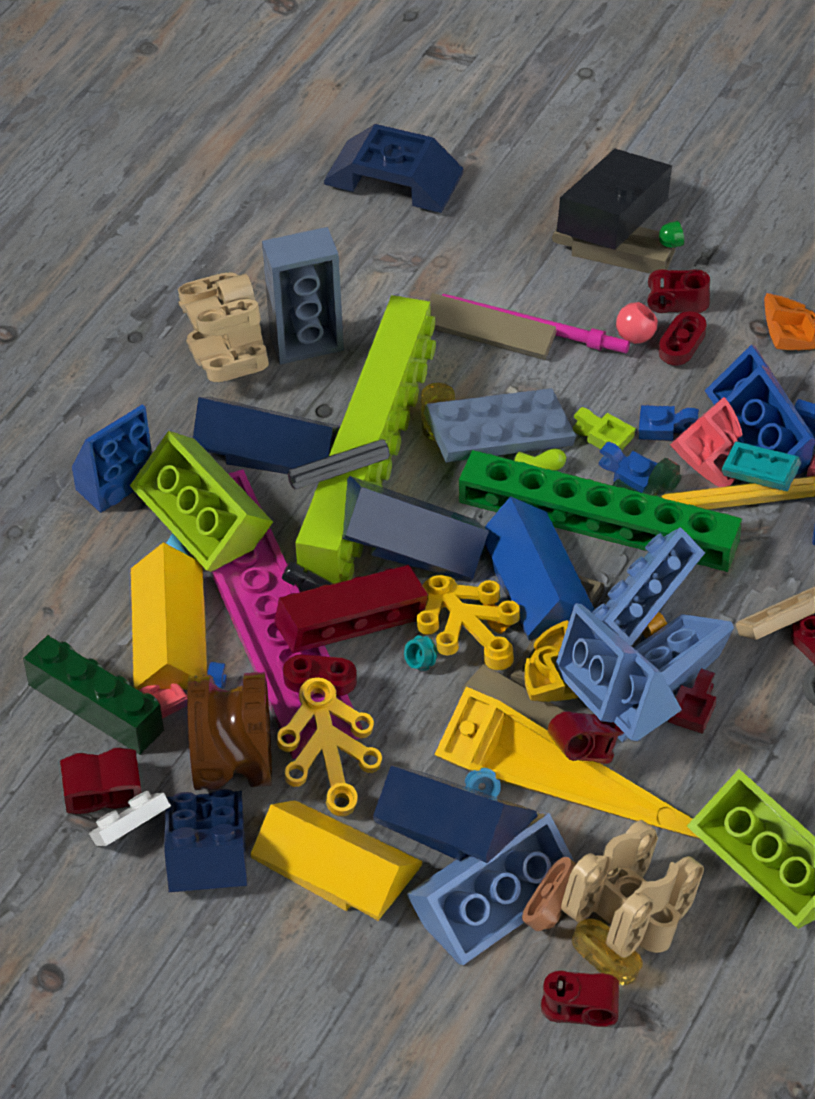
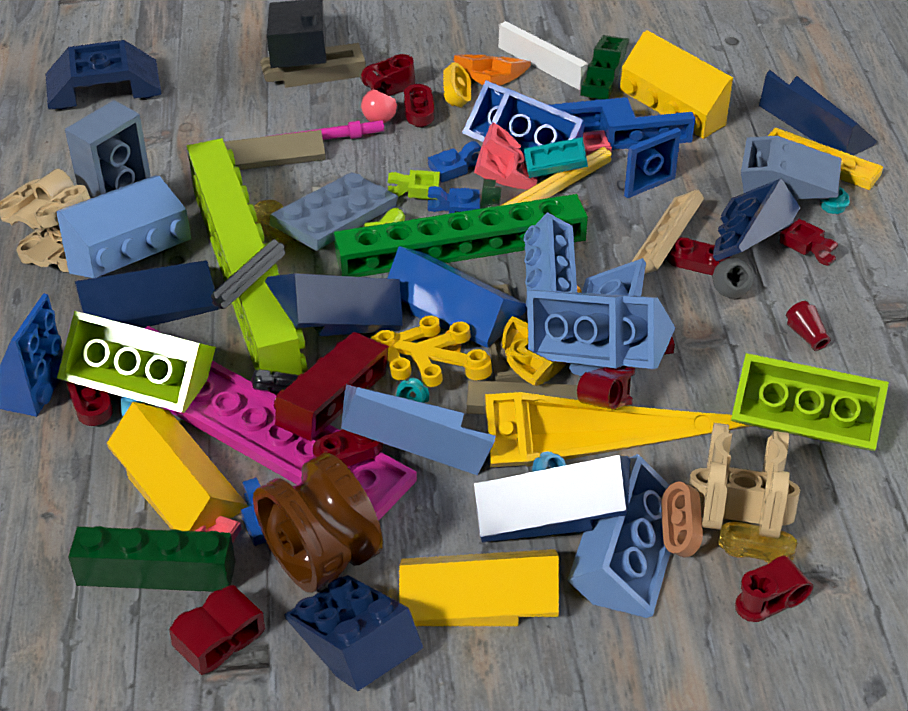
camera: 35 degrees left, 5 degrees down
(116, 825) = (267, 654): white plate -> none
(144, 526) = (90, 404): none -> dark red plate
(280, 358) = (122, 227): none -> medium blue slope
(328, 740) = (401, 493): yellow plant -> none
(385, 683) = (415, 428): none -> medium blue slope
(672, 235) = (360, 40): green hinge -> none
(740, 331) = (456, 85): none -> yellow plate

